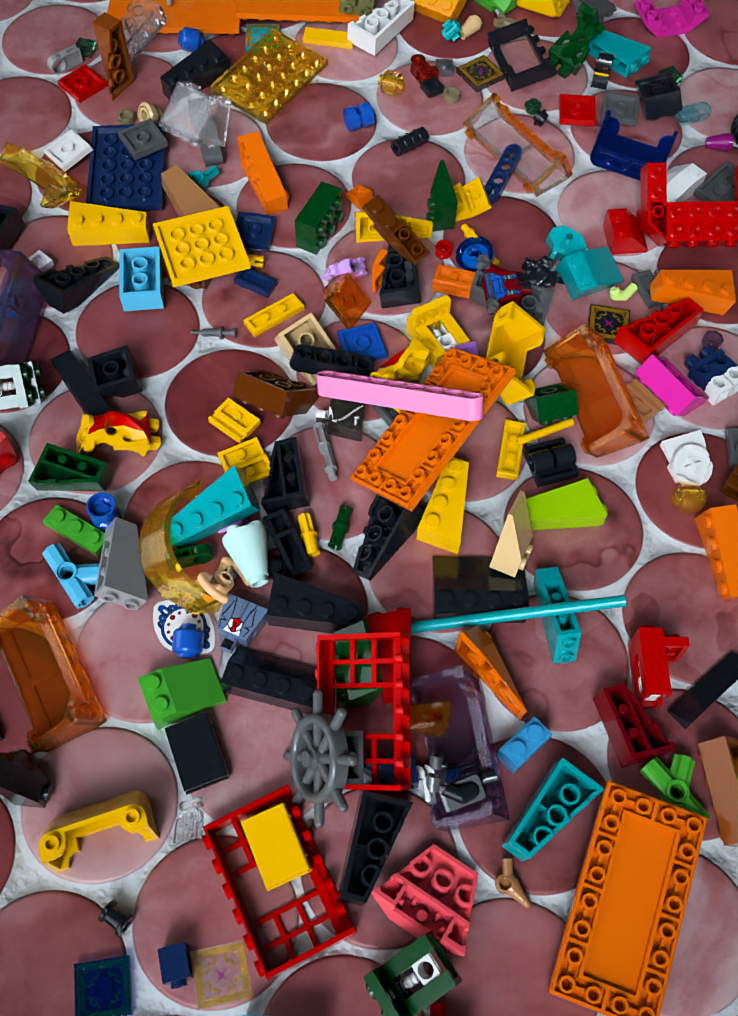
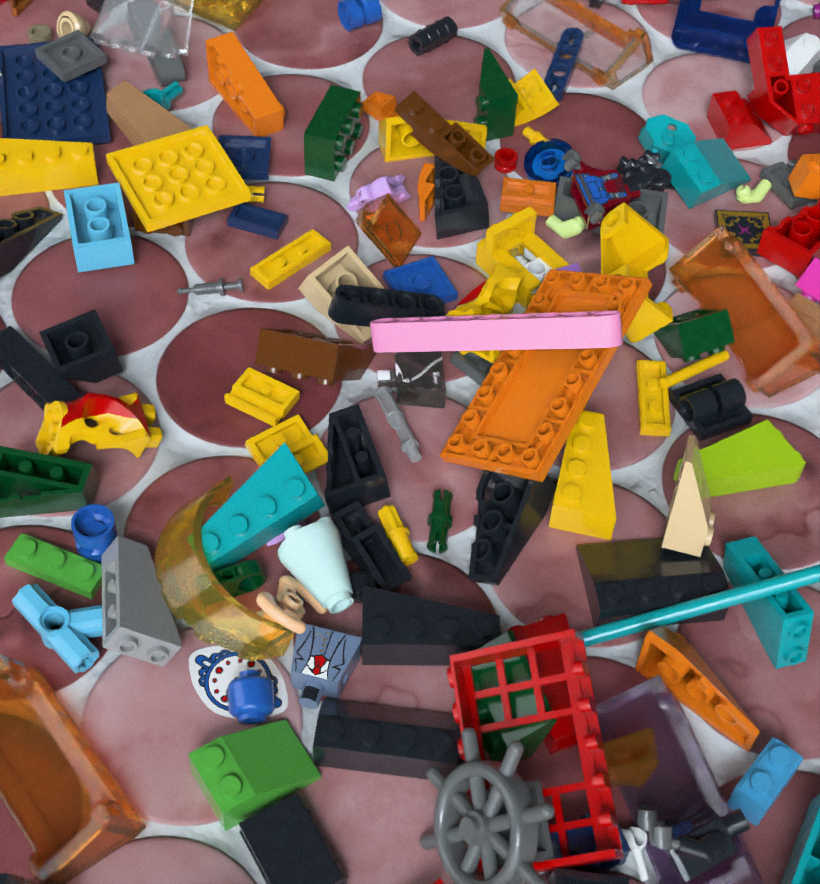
camera: 10 degrees left, 10 degrees down
(475, 309) = (567, 228): none -> yellowish green arm

